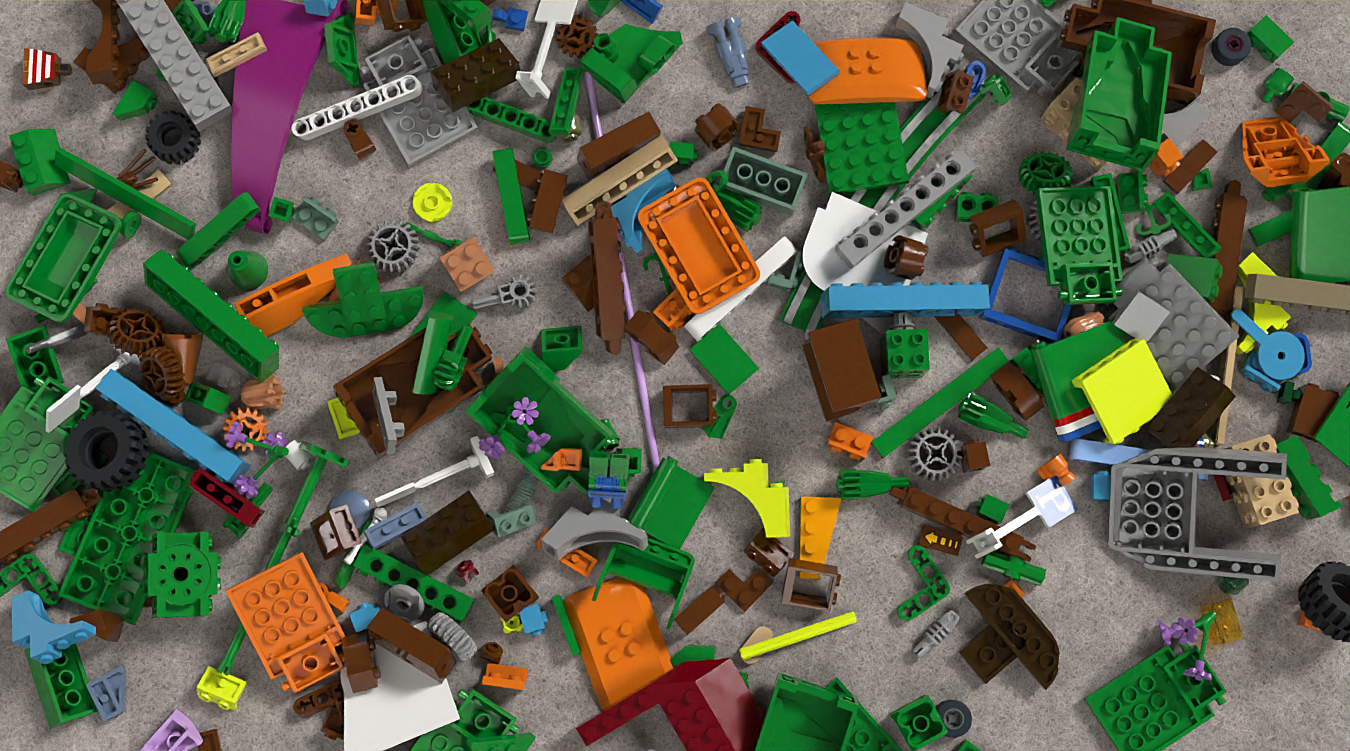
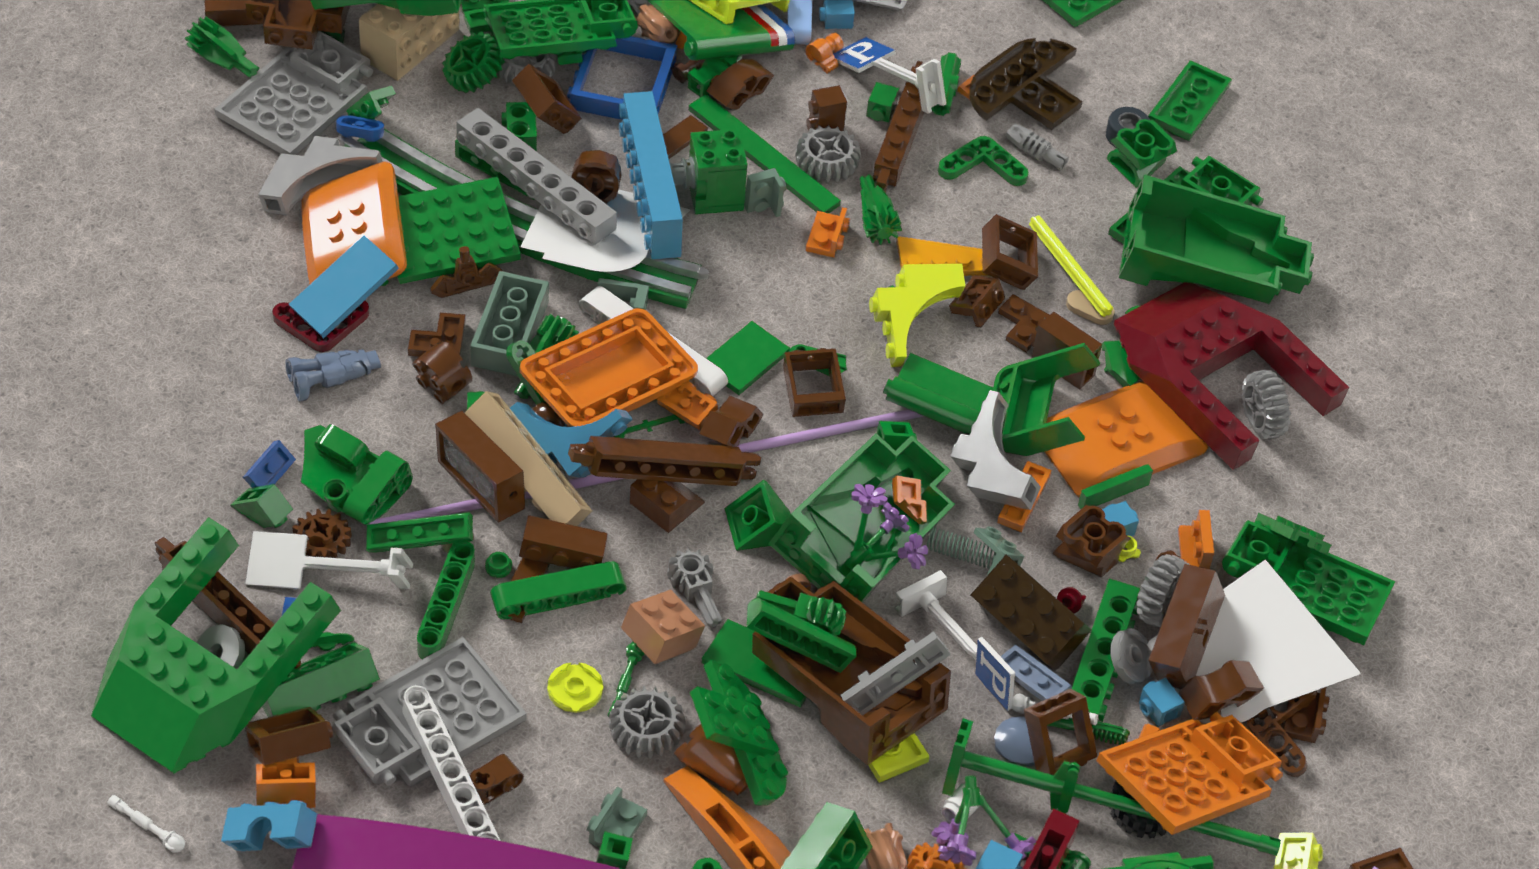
camera: 100 degrees left, 30 degrees down
(342, 48) = (370, 803): green wing -> none
(475, 74) = (392, 632): dark brown brick -> none
(608, 485) = (927, 436): hips -> none
(841, 370) = (747, 217): reddish brown piece -> none
(940, 540) = (927, 149): reddish brown tile -> none
(955, 92) = (382, 136): reddish brown bracket -> none
(985, 415) = (773, 110): green piece -> none

